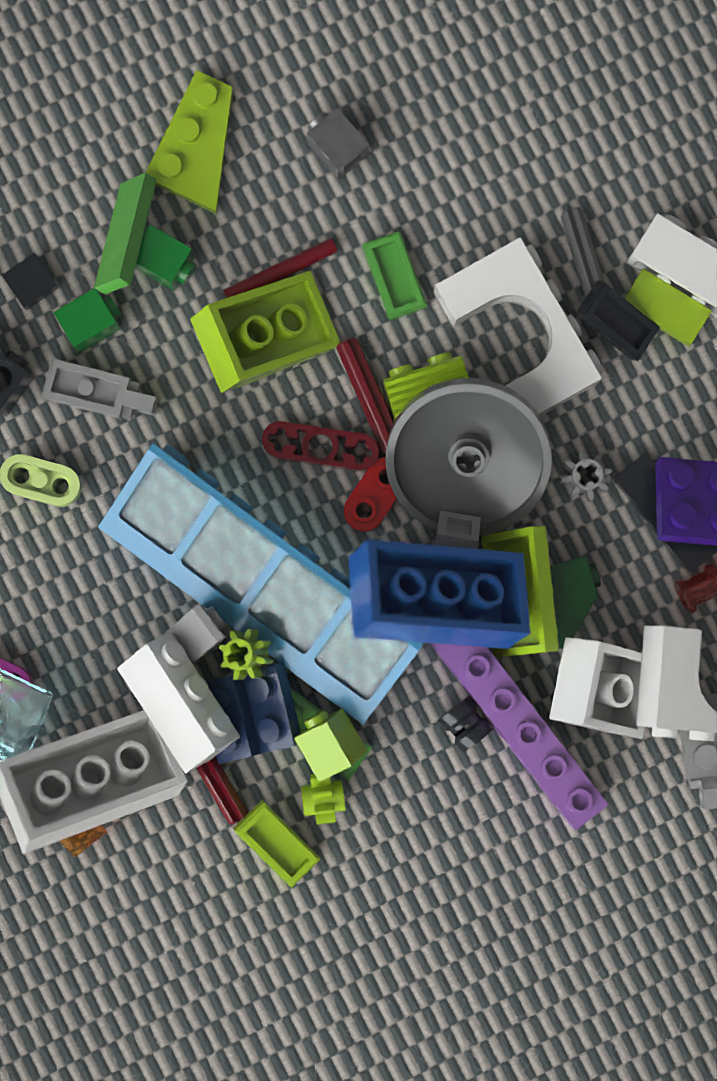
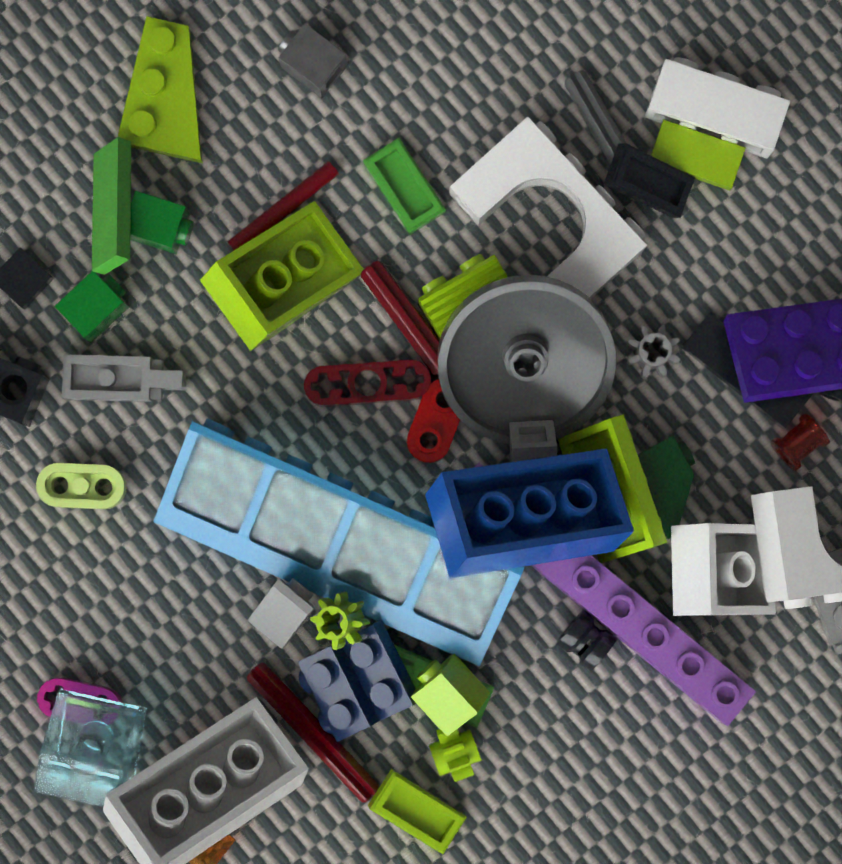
camera: 10 degrees left, 0 degrees up
(178, 702) = (280, 687): white brick -> none

